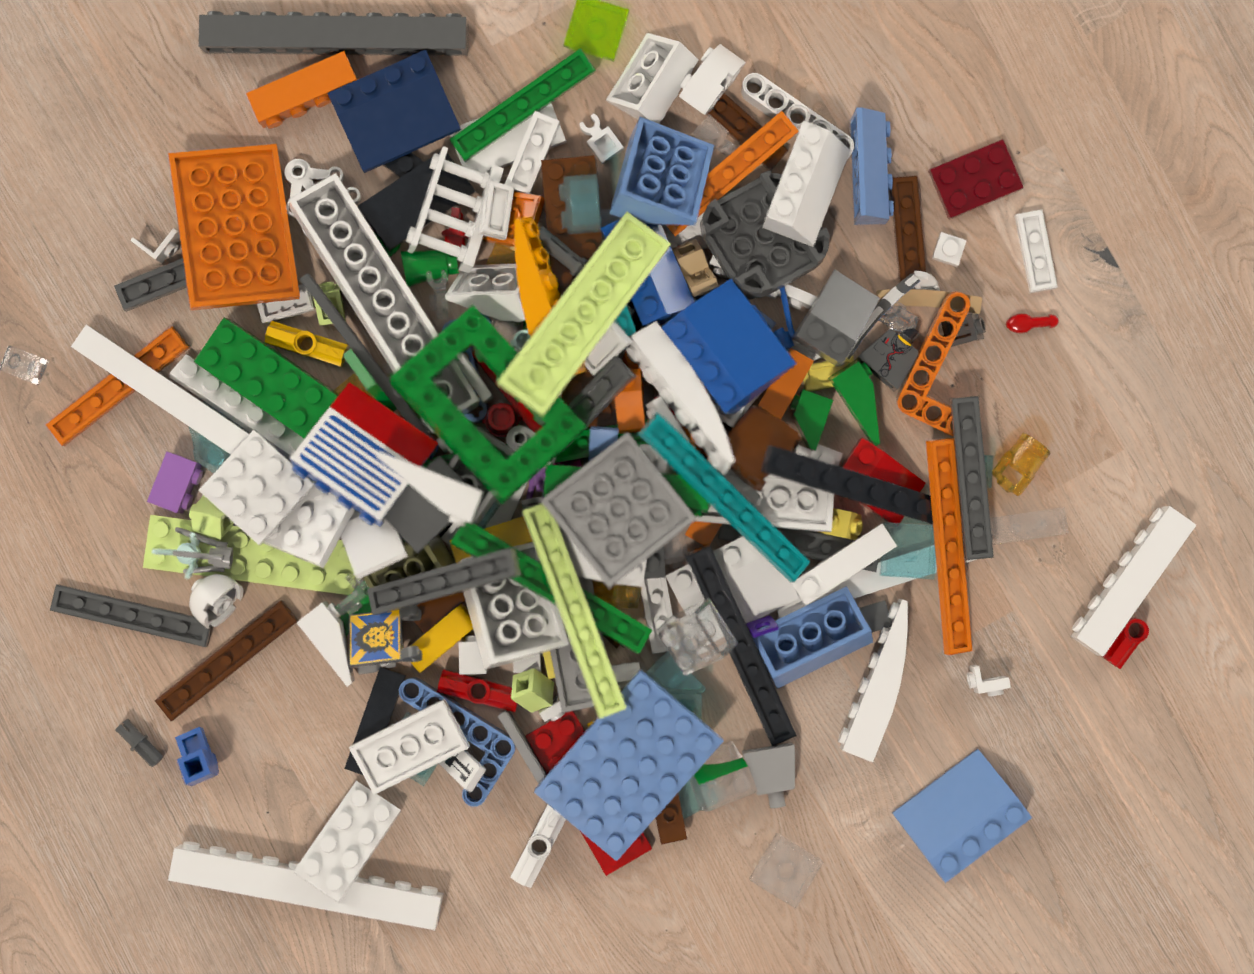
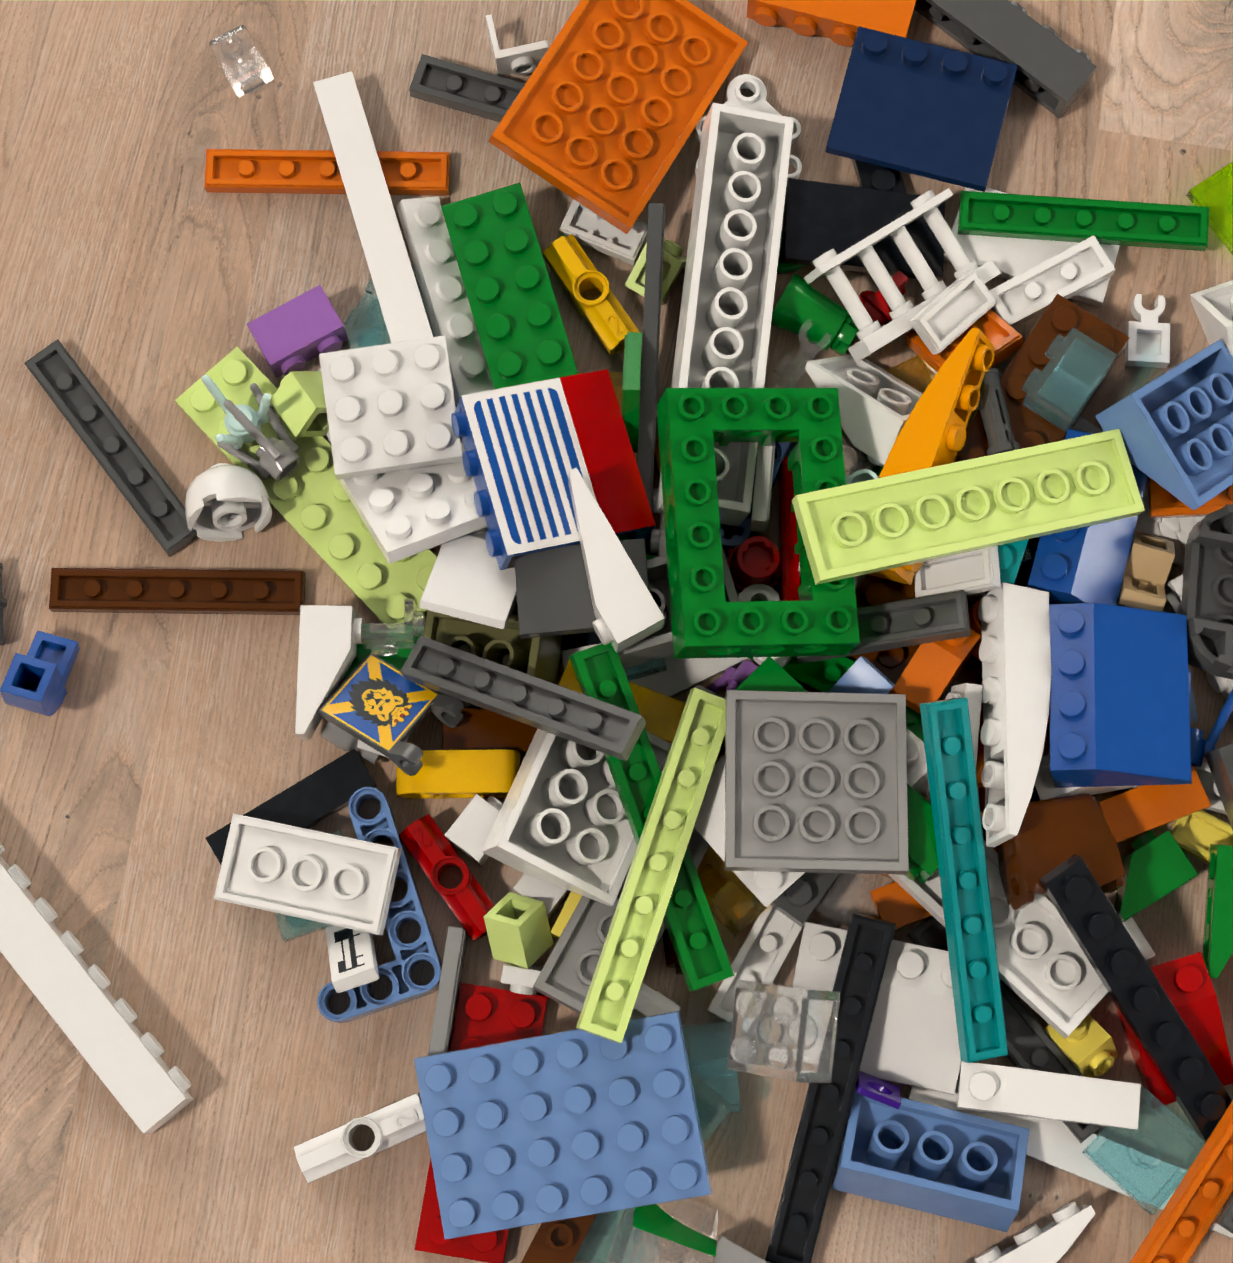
camera: 40 degrees right, 10 degrees down
(347, 841) = (131, 930): white plate -> none
(876, 616) = (1038, 1203): dark grey tile -> none

